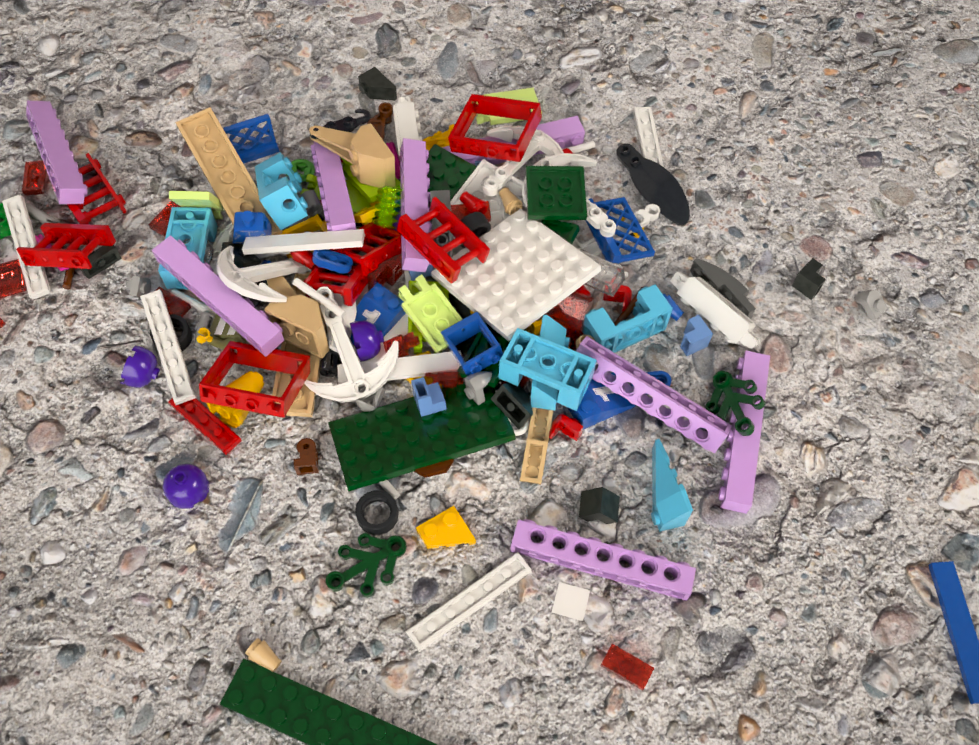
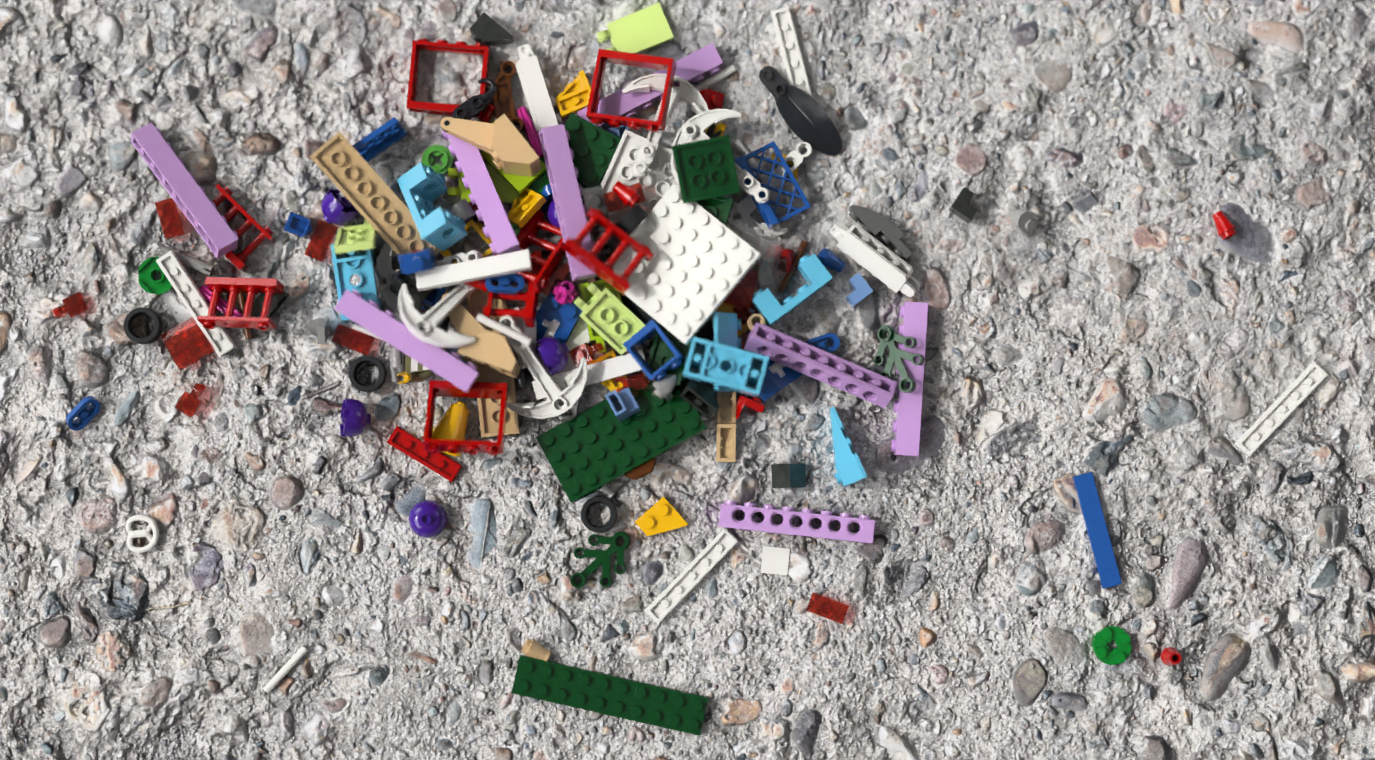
camera: 10 degrees left, 25 degrees up
(151, 200) = (298, 225): none -> blue plate
(168, 347) = (371, 391): white tile -> none
(190, 181) = (338, 208): none -> dark purple cylinder
(300, 129) = (442, 46): none -> red window
(308, 457) = (527, 472): reddish brown leg -> none
(386, 207) = (544, 209): clear neon green piece -> none
(391, 282) = (564, 292): none -> dark pink gear
(510, 201) = (661, 178): tan cone -> none

